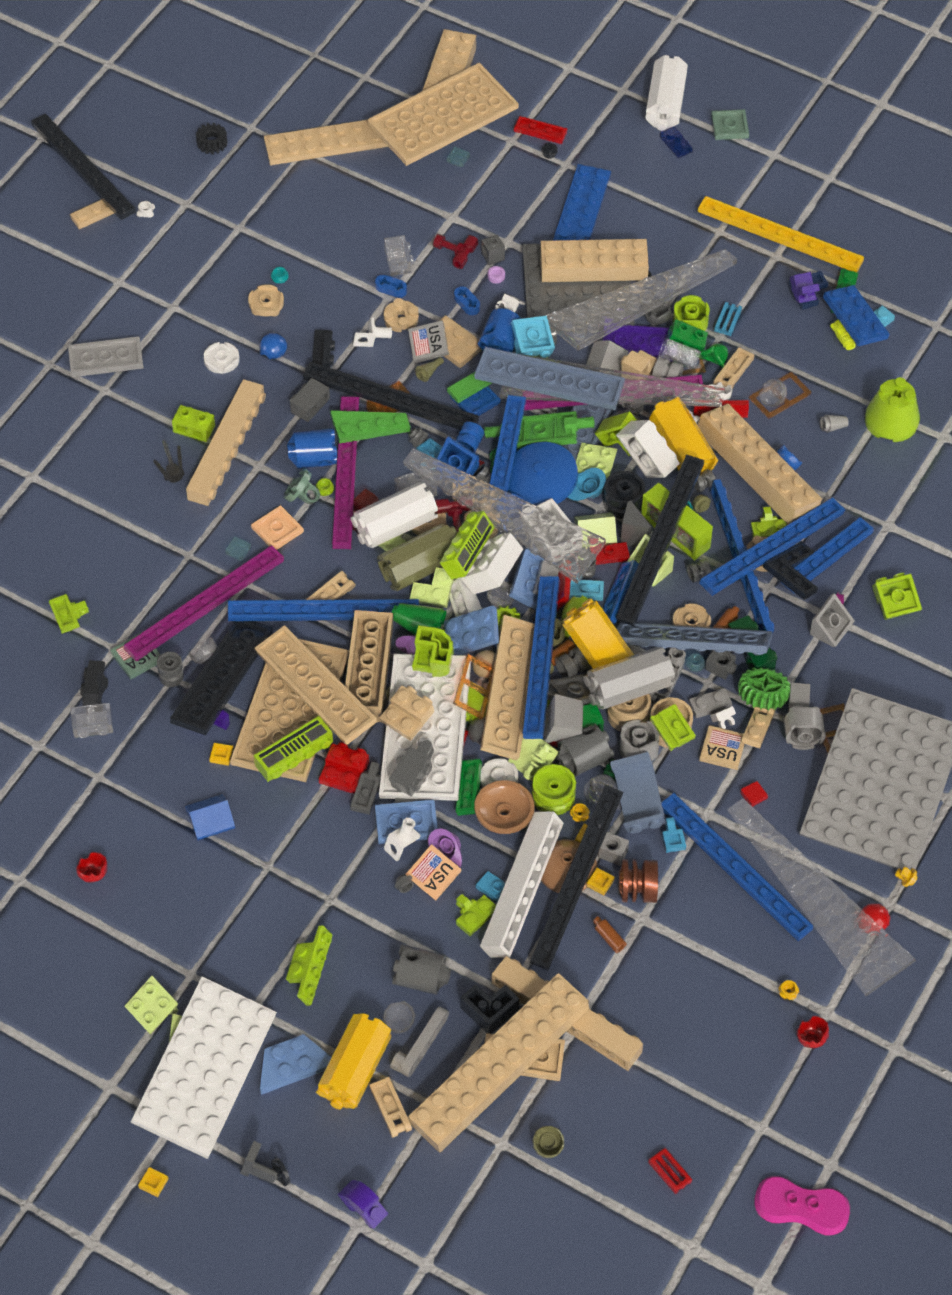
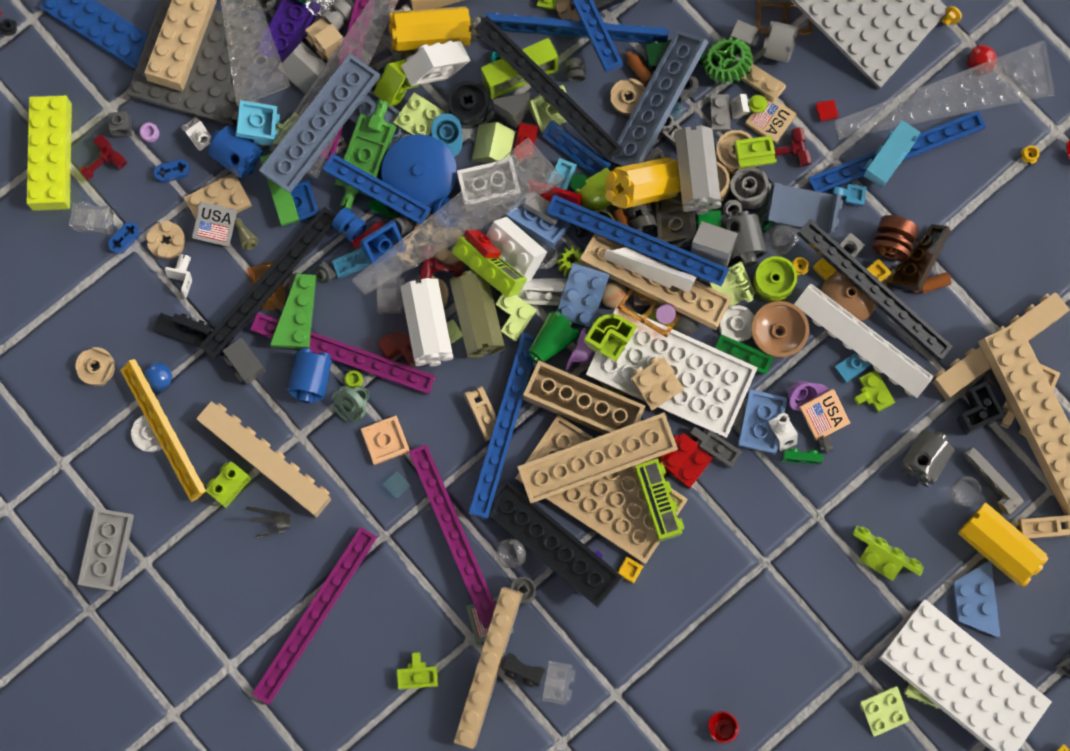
camera: 70 degrees left, 20 degrees up
(76, 656) = (488, 667): none -> tan brick
(97, 521) = (314, 616): none -> magenta plate
(210, 816) = (695, 600): slope -> none
(229, 356) = (163, 431): none -> yellow plate
(279, 275) = (66, 343): teal plate -> none
(385, 872) = (794, 456): none -> green plate
(413, 768) = (719, 397): dark grey hinge -> none
(445, 209) = (49, 153): none -> neon yellow brick
(479, 701) = (665, 314): none -> lavender tile
(485, 531) = (482, 243): none -> red plate
(518, 675) = (650, 268): none -> white wedge
(613, 731) = (732, 212): none -> light grey cone
(630, 915) = (915, 271): none -> dark brown wing
(701, 775) = (796, 147): none -> dark red bar
(725, 851) = (891, 154): none -> medium azure wedge
(730, 727) = (757, 104): none -> lime plate

